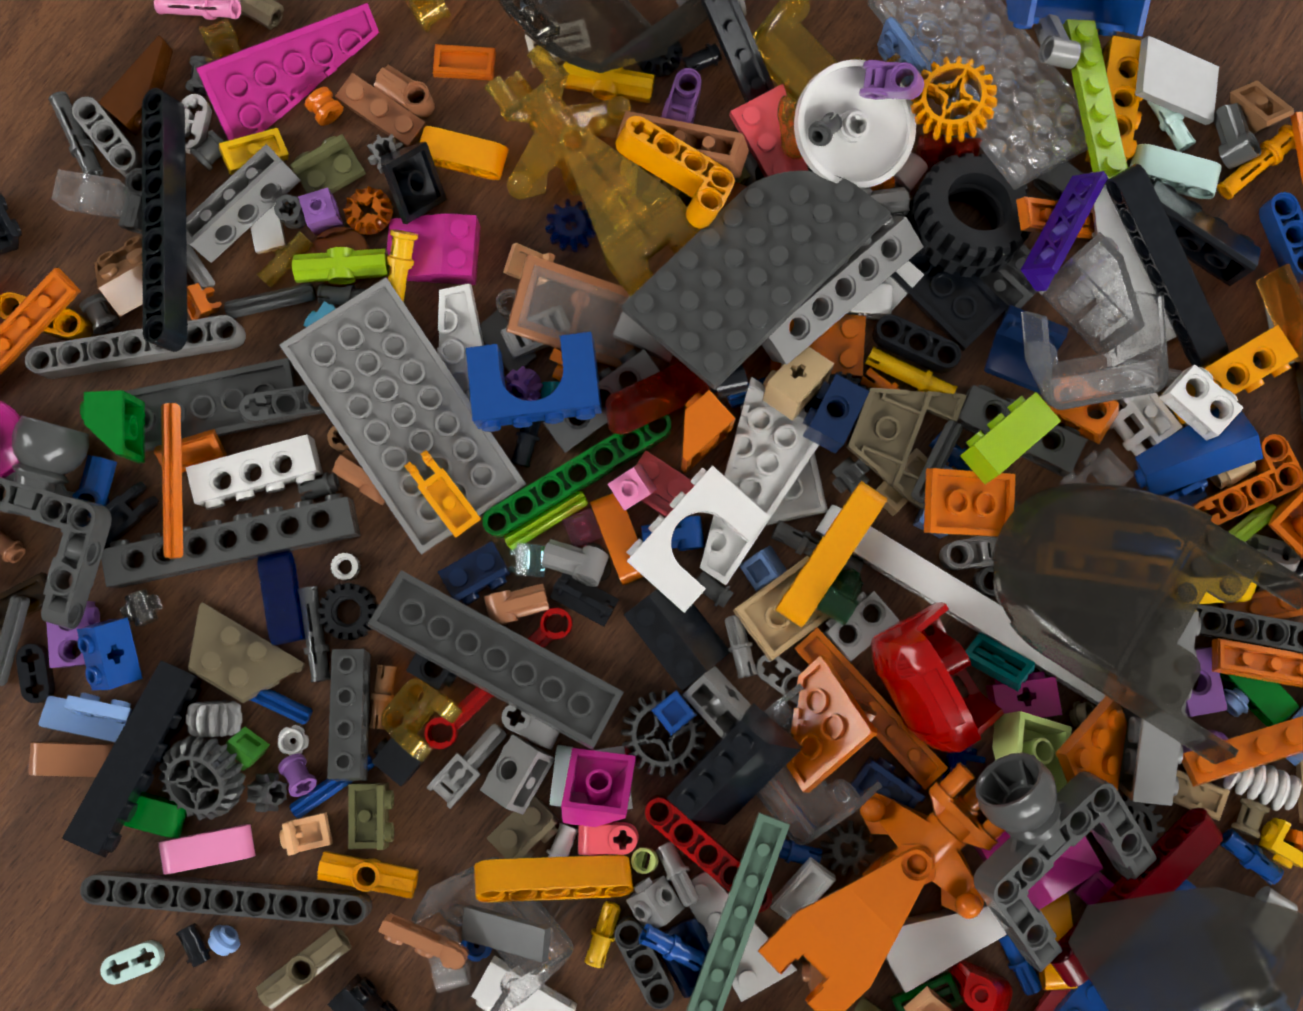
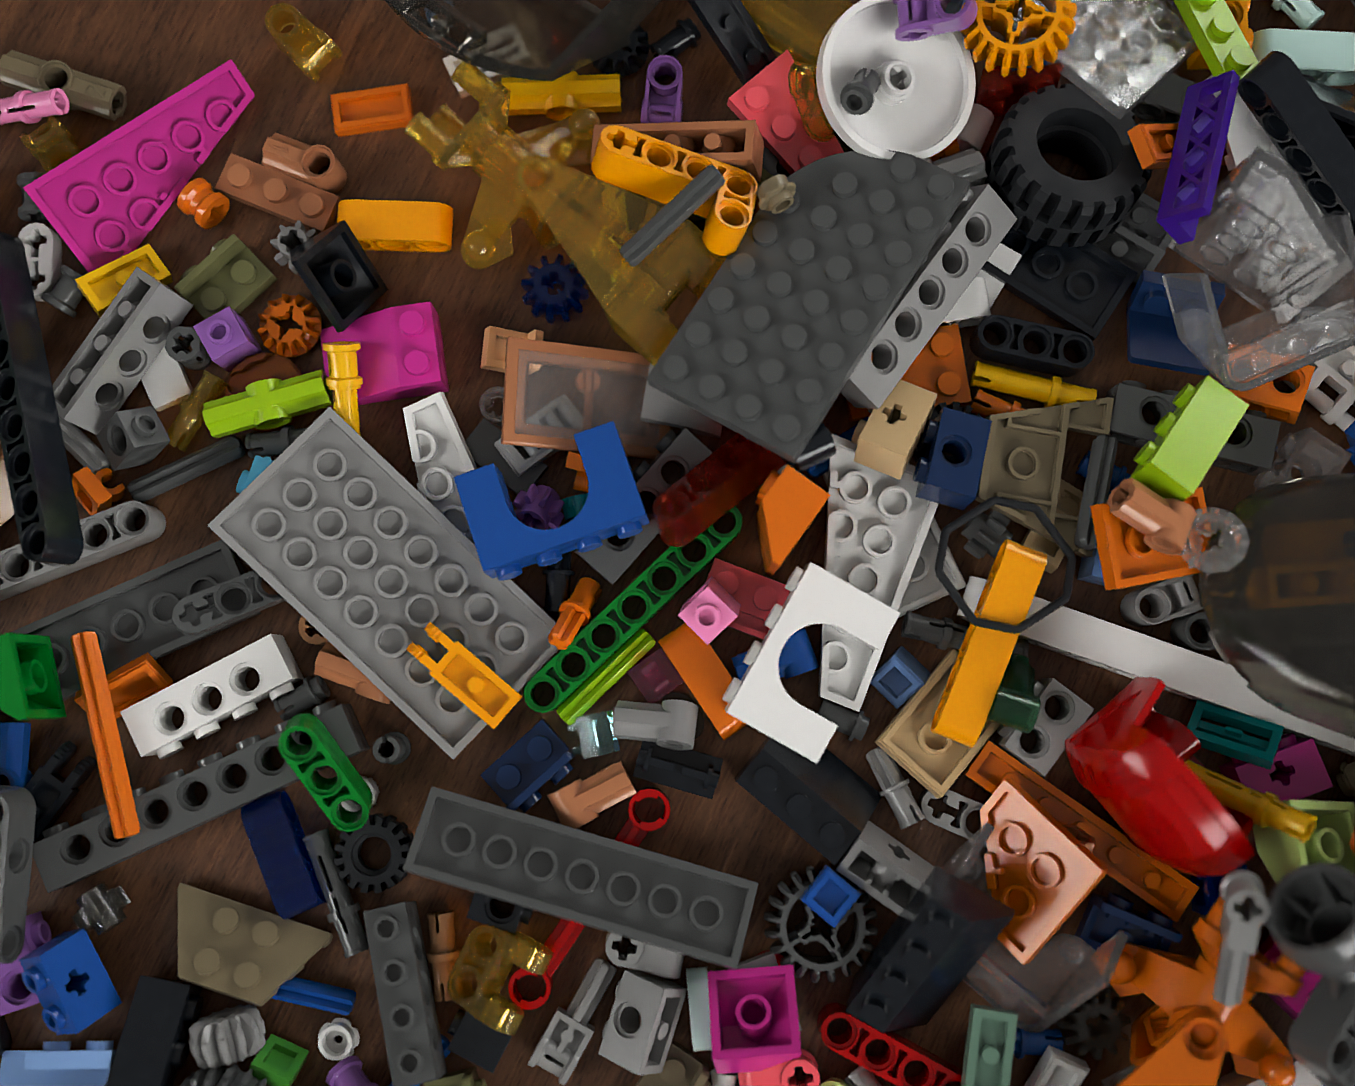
camera: 10 degrees left, 0 degrees up
(236, 269) = (133, 437): none -> dark grey brick
(325, 557) = (326, 791): none -> green beam
(383, 542) = (401, 745): none -> dark grey pin
(533, 467) = (575, 613): none -> orange axle
(665, 191) = (672, 215): none -> dark grey axle
(746, 191) = (776, 194): none -> dark tan plate
(897, 484) = (1069, 575): none -> black piece
(956, 794) = (1242, 915): none -> light grey connector
(975, 490) = (1162, 520): none -> nougat piece
(1000, 713) = (1261, 807): none -> yellow pin
(1009, 499) = (1233, 540): none -> clear gear

